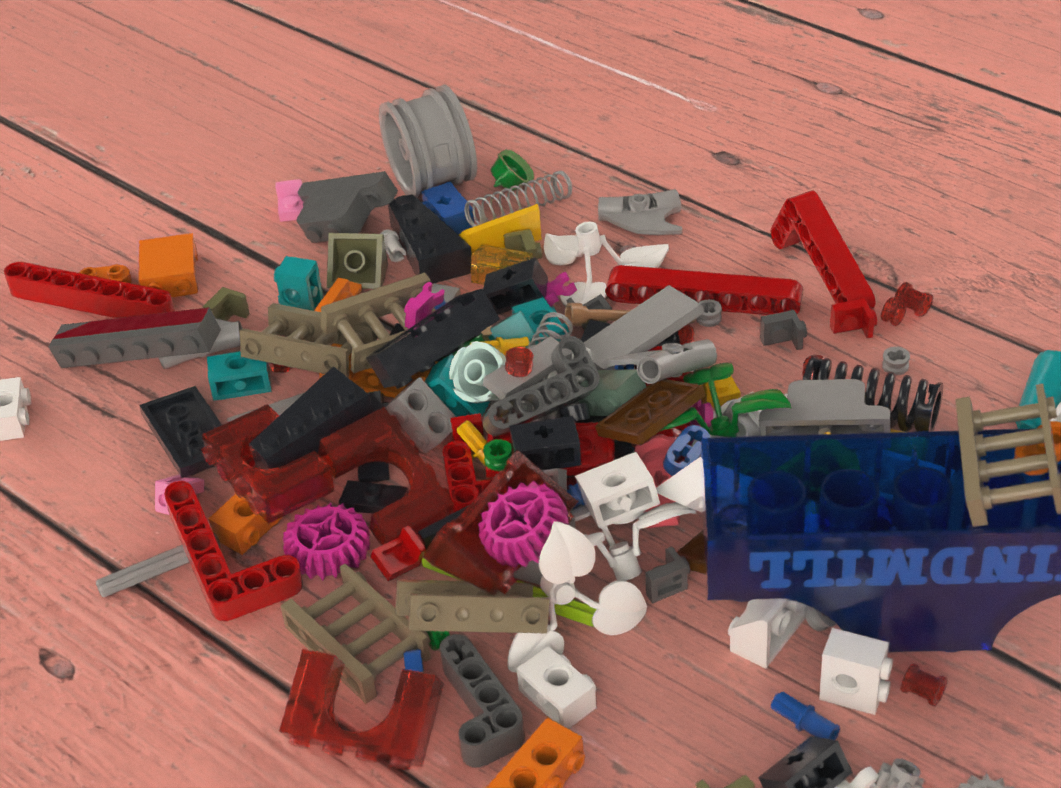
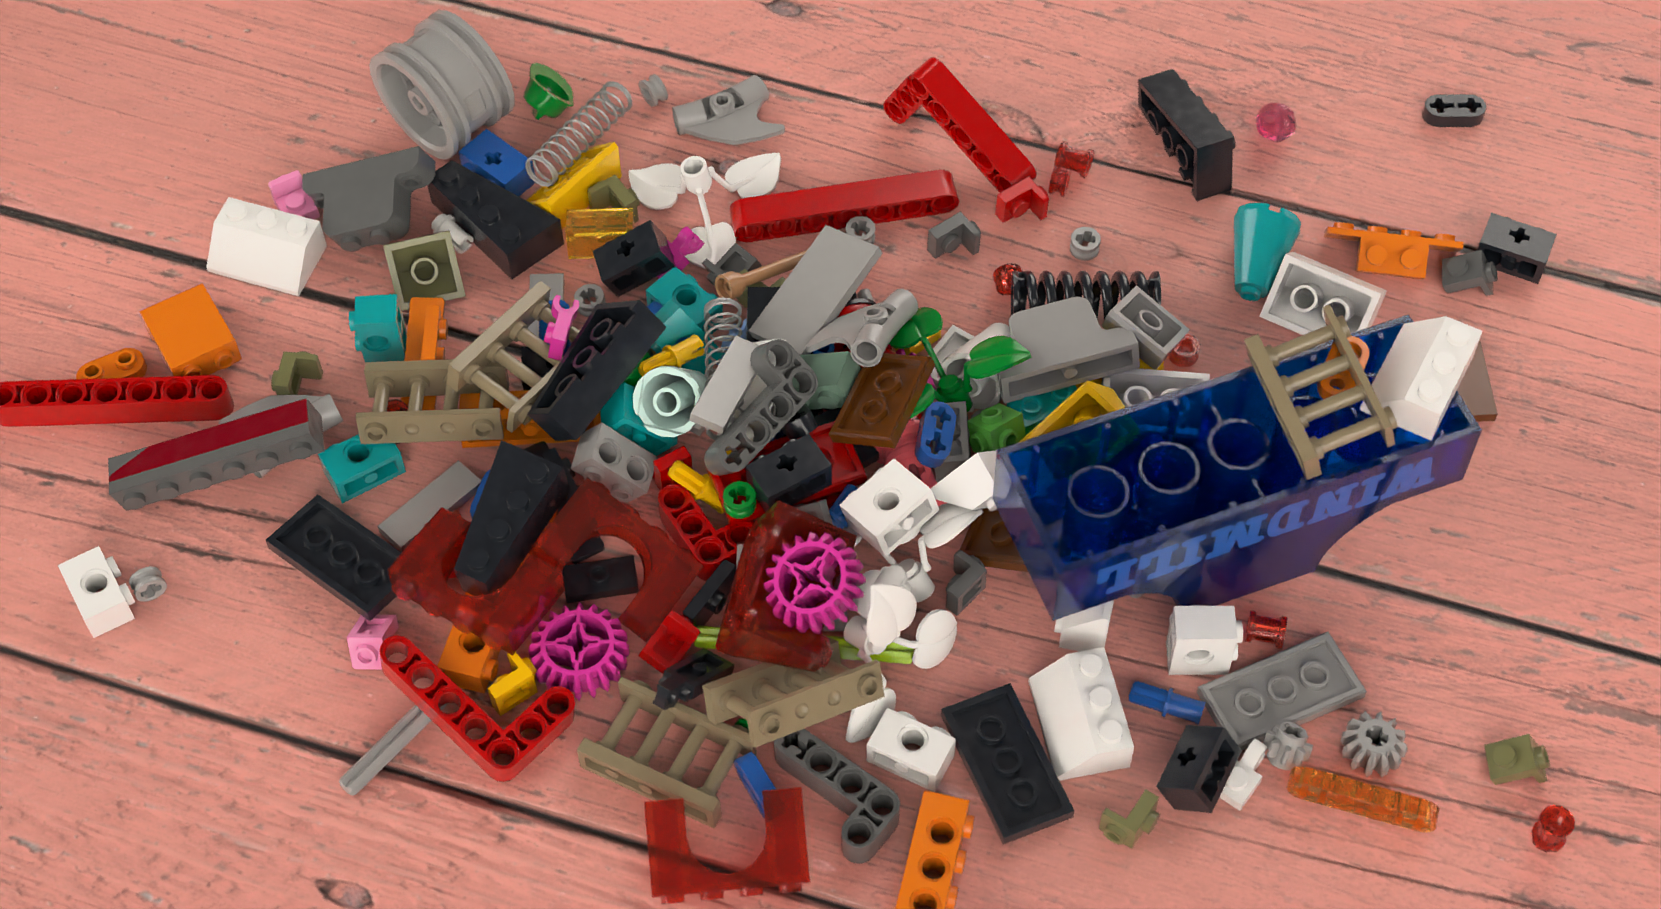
camera: 25 degrees left, 15 degrees up
(42, 421) = (147, 584): none -> light grey bush
(253, 224) = (265, 246): none -> white slope
(261, 549) = (515, 687): none -> yellow bracket
(385, 577) = (686, 677): none -> black hinge
(519, 354) = (728, 376): clear red bush -> none
(593, 186) = (653, 90): none -> light grey bush
(635, 725) = (1007, 763): none -> black plate
(720, 705) = (1082, 715): none -> white slope
(908, 409) = (1152, 325): none -> light grey slope
(930, 737) = (1282, 688): none -> light grey tile
(1022, 301) = (1188, 132): none -> black wedge

